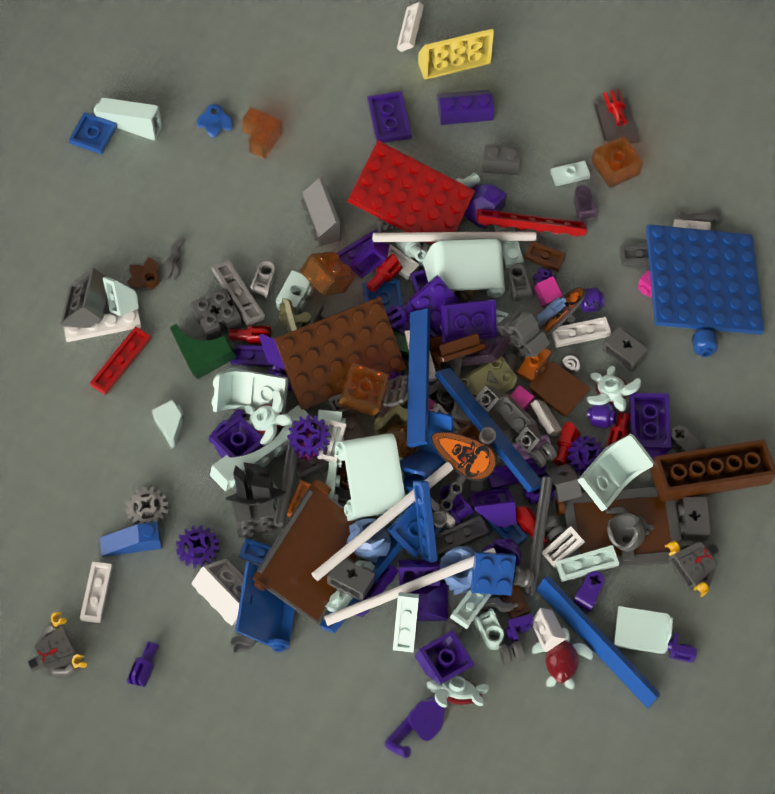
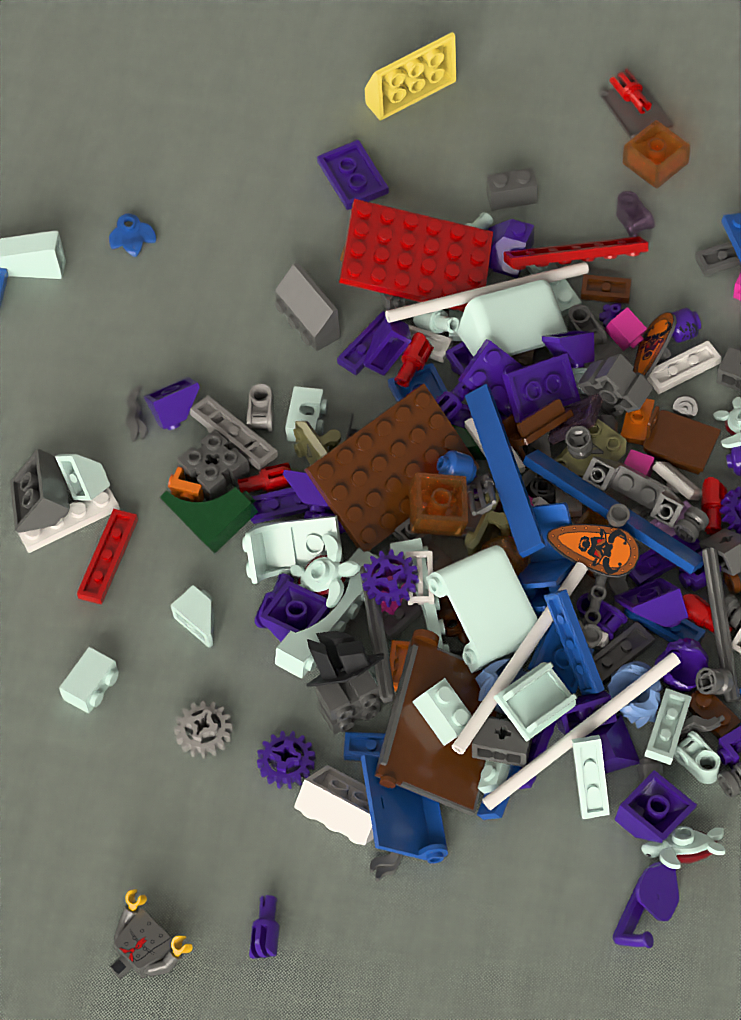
camera: 10 degrees left, 5 degrees down
(78, 449) = (89, 680): none -> light aqua brick
(96, 592) = (171, 854): white plate -> none
(131, 540) = (197, 774): blue slope -> none
(143, 274) = (101, 443): reddish brown plate -> none
(190, 327) = (183, 489): none -> orange bracket
(202, 257) = (172, 403): none -> dark purple slope
(263, 130) = (199, 230): clear orange brick -> none
(315, 545) = (443, 711): none -> light aqua brick
(327, 273) = (341, 377): clear orange brick -> none
(382, 556) = (536, 700): none -> light aqua piece
(386, 364) = (457, 464): none -> blue head
(410, 27) = (342, 62): white plate -> none
(465, 107) = (444, 138): dark purple slope -> none
(483, 367) = (577, 437): none -> dark grey wheel
(493, 573) = (682, 684): blue plate -> none
(505, 294) = (576, 343): none -> dark purple slope
(551, 310) = (640, 347): medium blue piece -> none
(570, 173) = (601, 184): light aqua plate -> none

